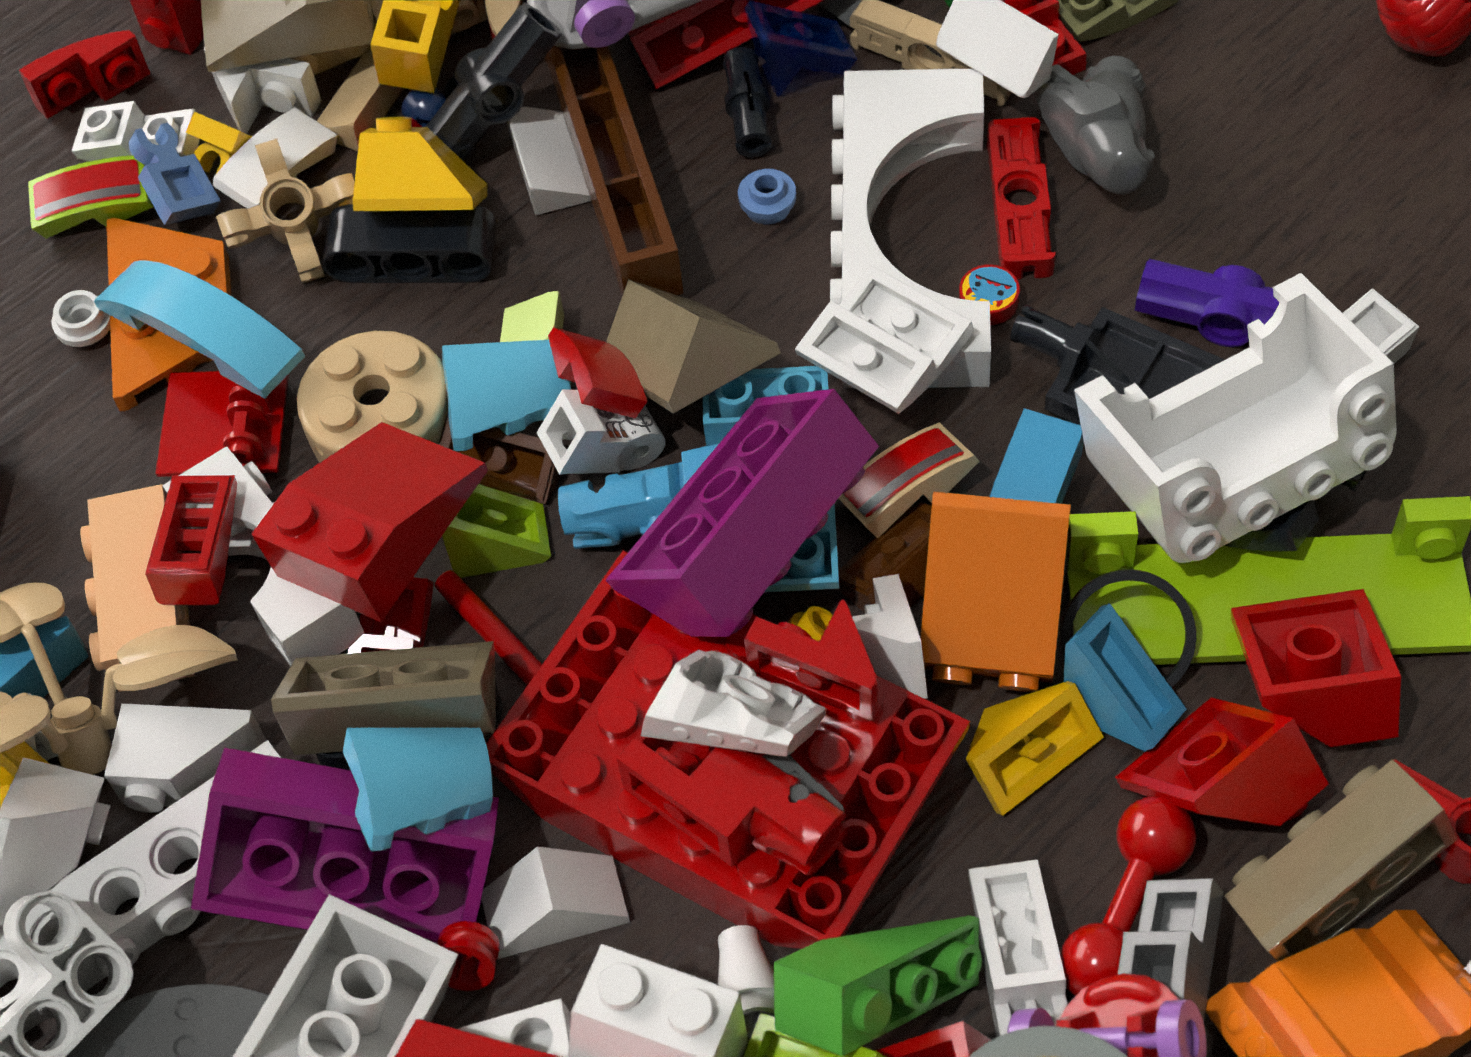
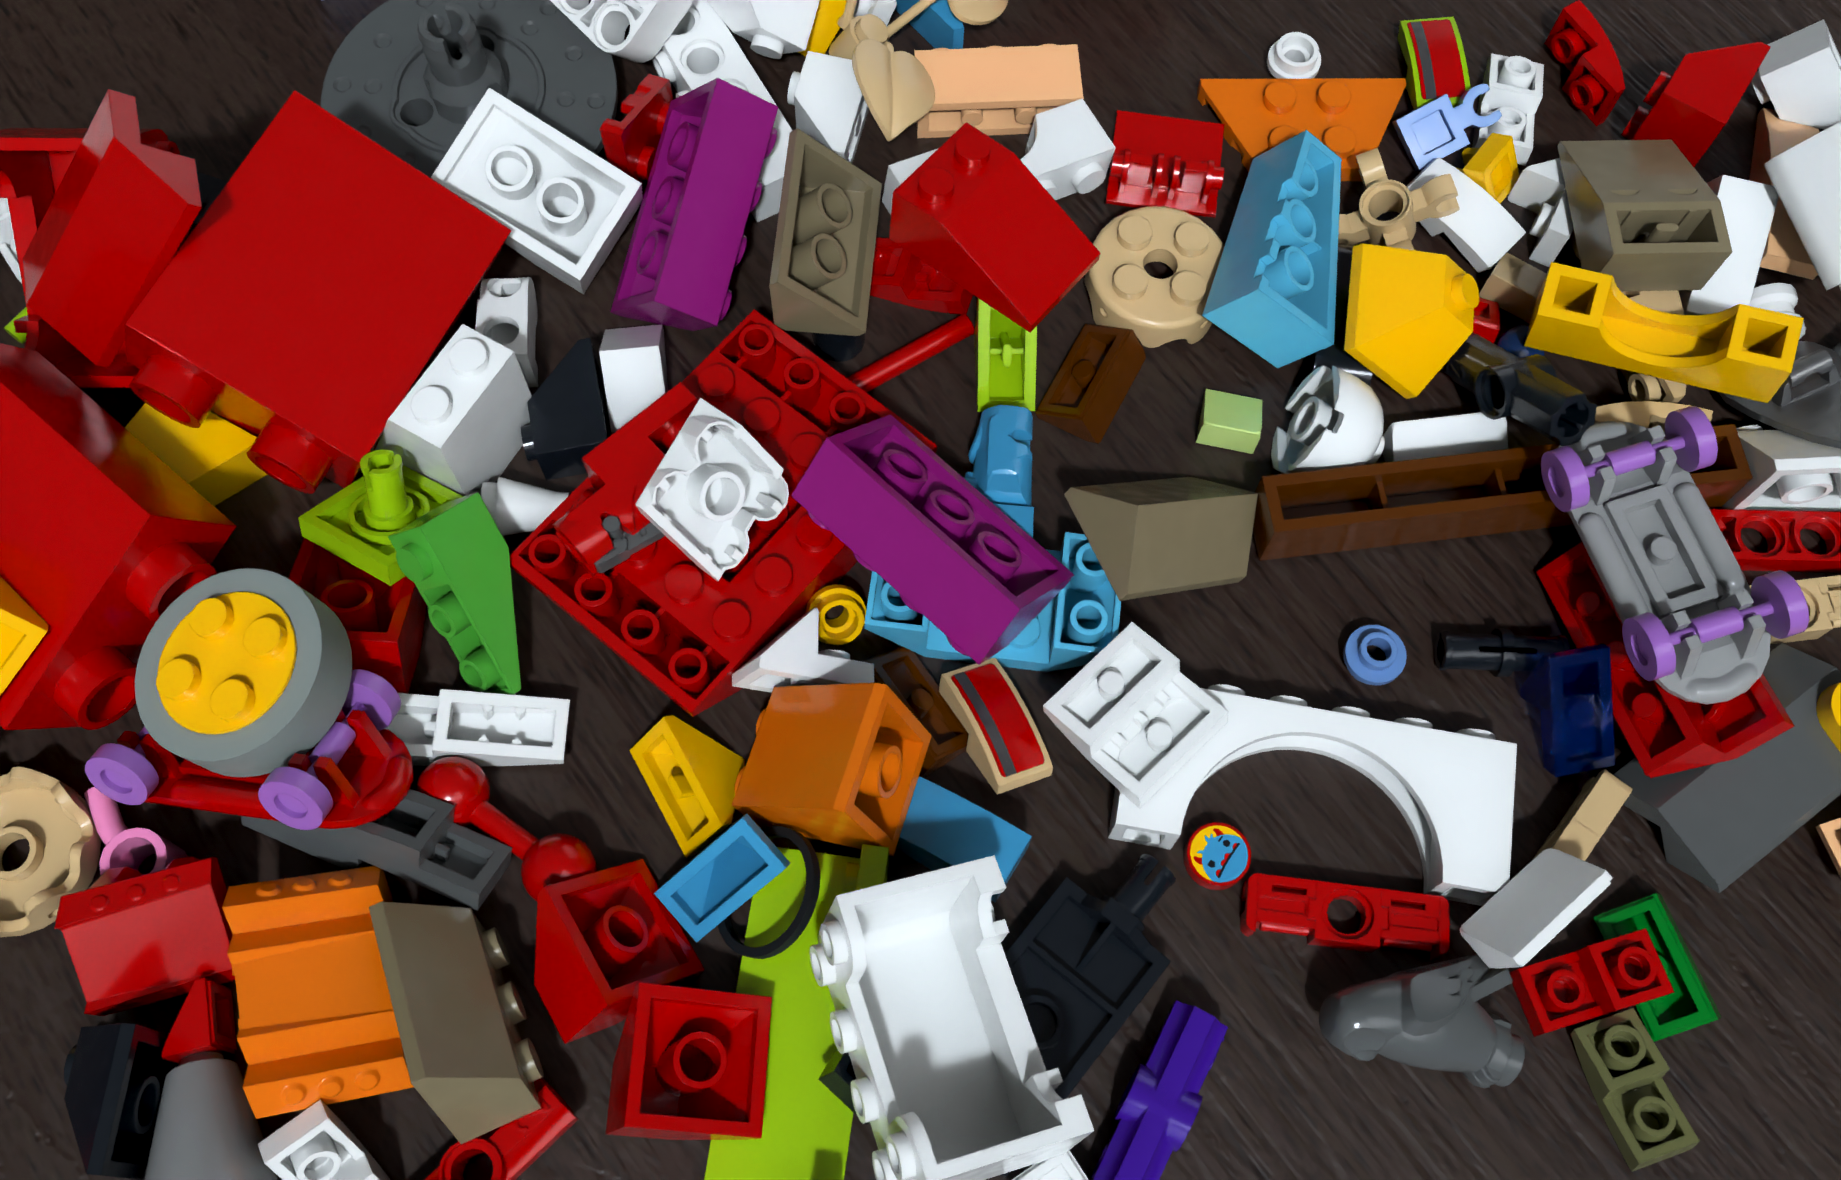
camera: 90 degrees right, 10 degrees up
(192, 576) = (999, 89): red slope -> none
(205, 319) = (1244, 126): medium azure slope -> none
(221, 951) = (635, 139): none -> red wing
(350, 282) = (1282, 254): none -> medium azure wedge
(417, 778) = (716, 241): medium azure slope -> none
(471, 940) = (599, 302): red bush -> none
(498, 387) = (1149, 375): medium azure slope -> none
(542, 239) = (1332, 426): none -> white cylinder
(600, 372) = (1147, 449): red slope -> none
(600, 438) = (1082, 443): white leg -> none
(635, 924) = (567, 414): none -> black slope
(827, 669) = (745, 585): red slope -> none

